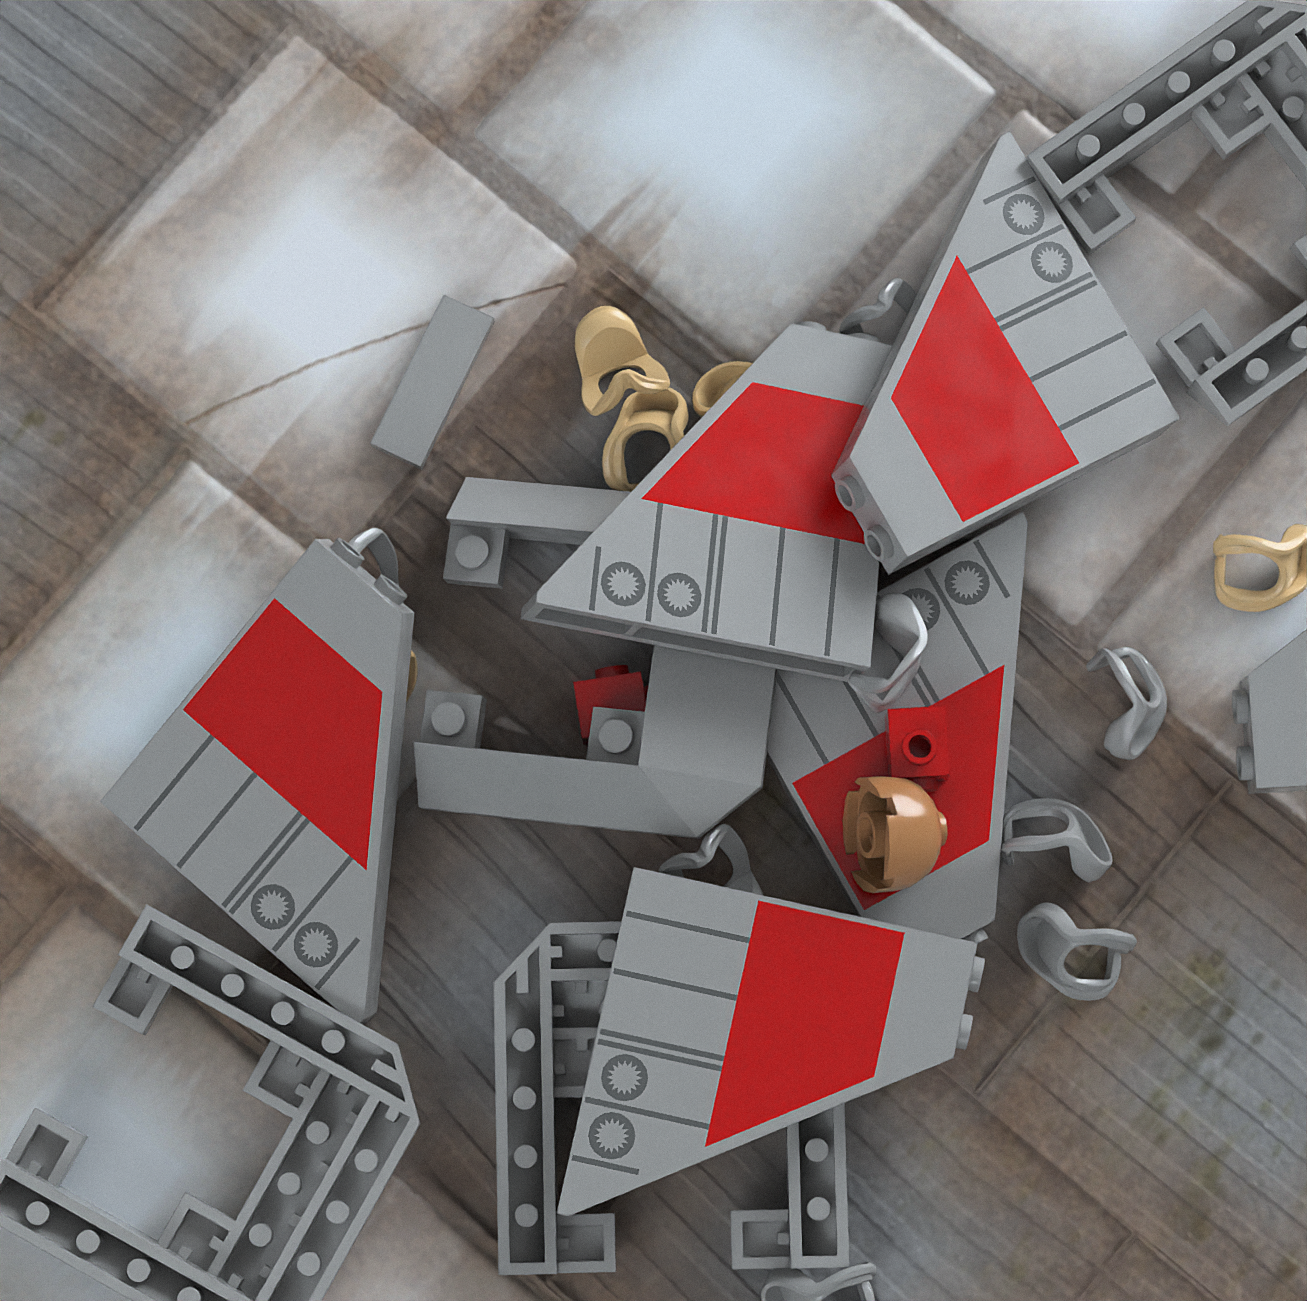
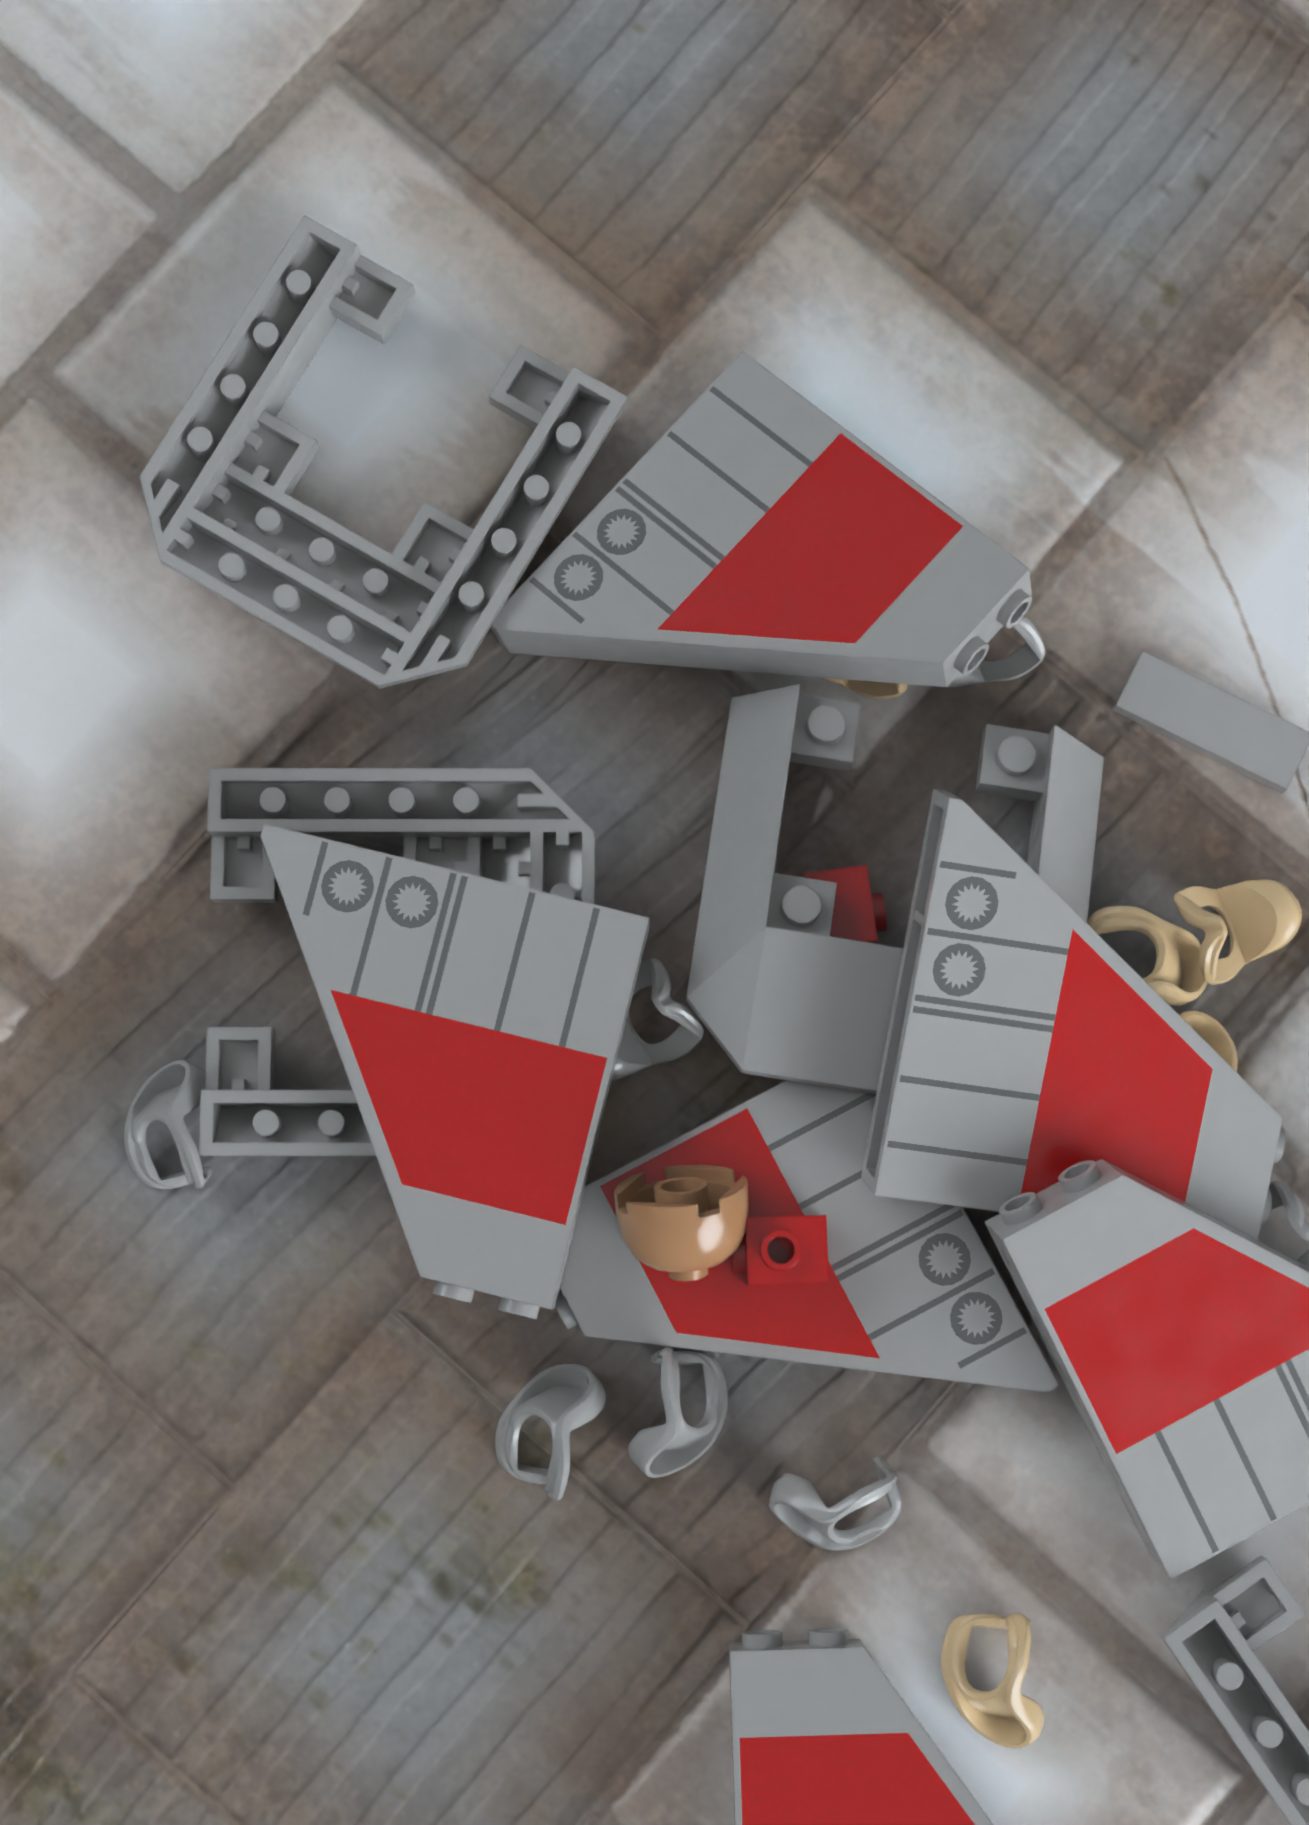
camera: 90 degrees right, 0 degrees up
(905, 631) = (923, 1237): light grey piece -> none

